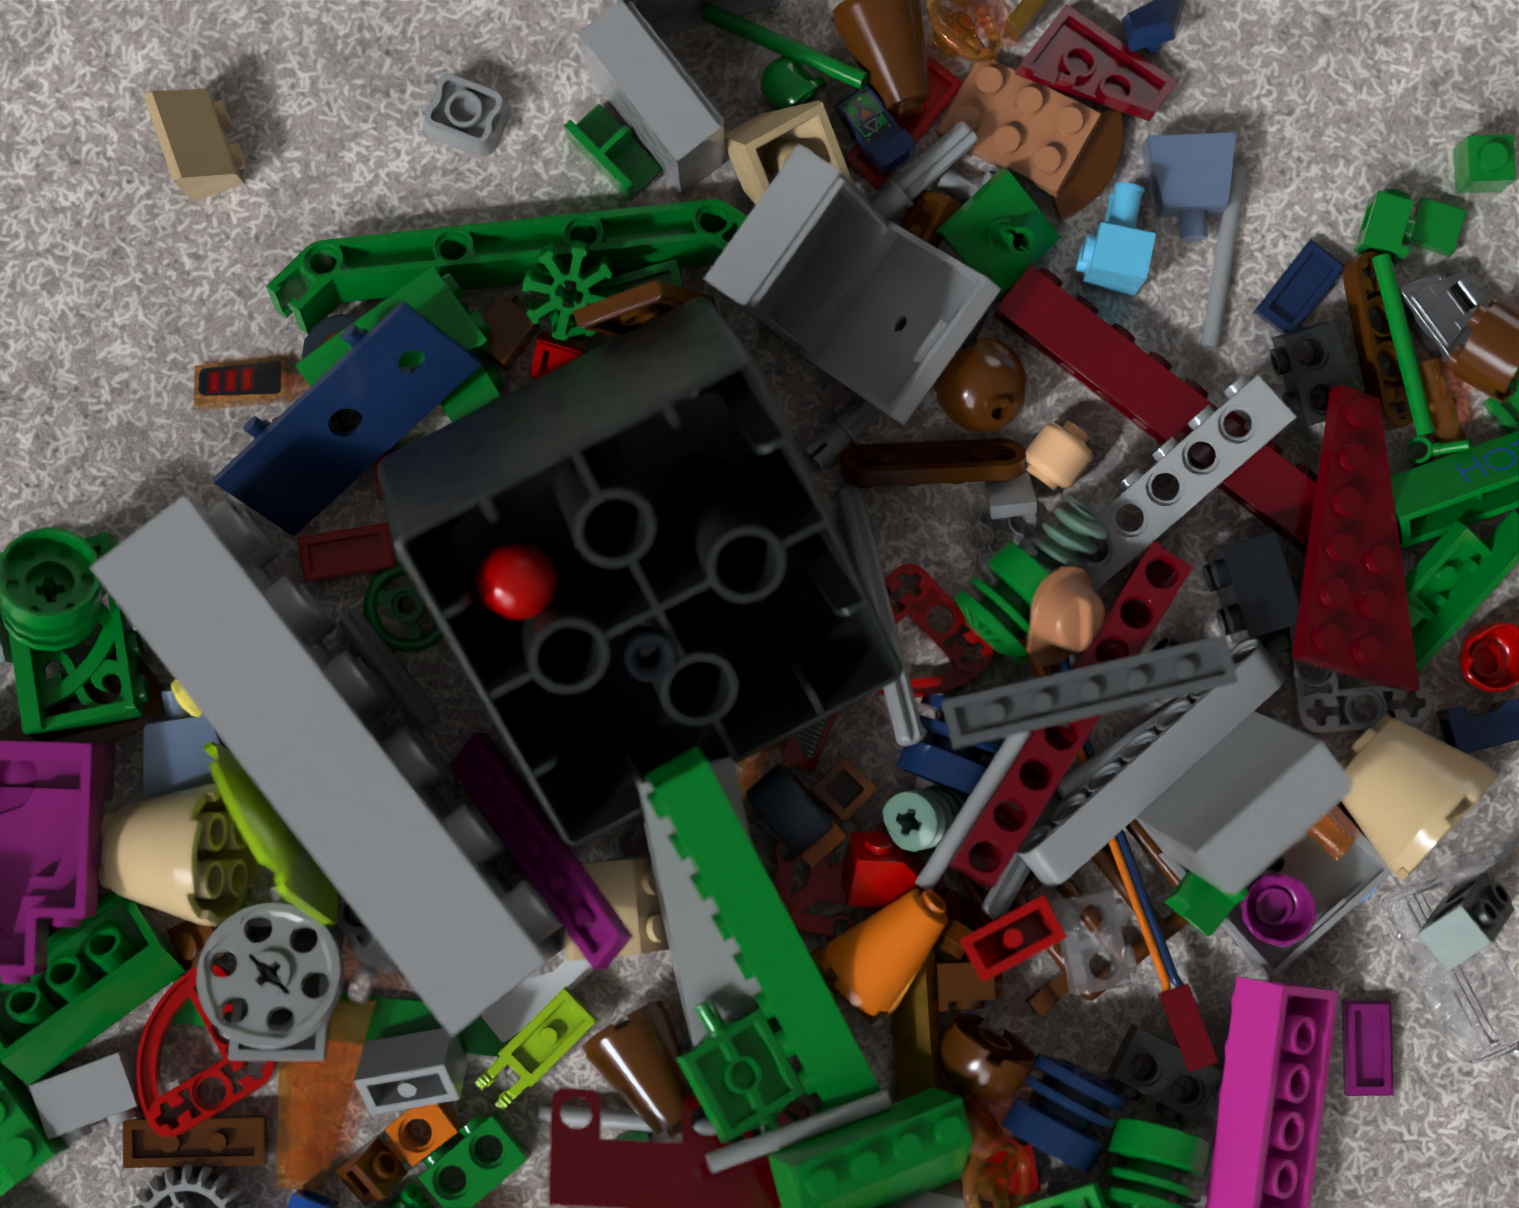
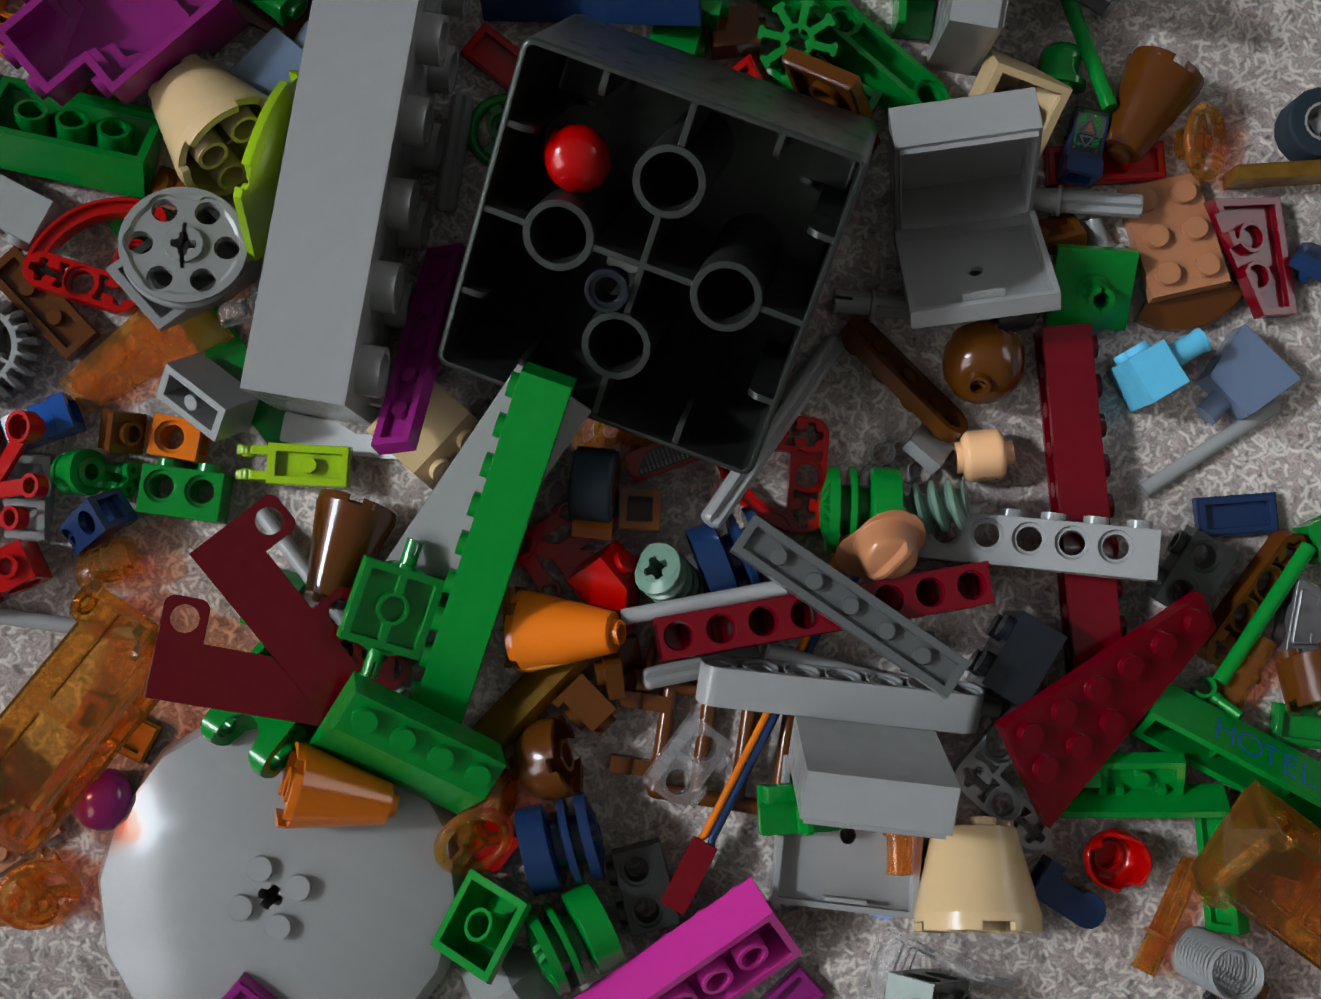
camera: 40 degrees right, 0 degrees up
(798, 1131) = (388, 677): light grey bar -> none
(1013, 939) = (641, 706): red slope -> none
(1279, 909) = (820, 865): magenta hair -> none

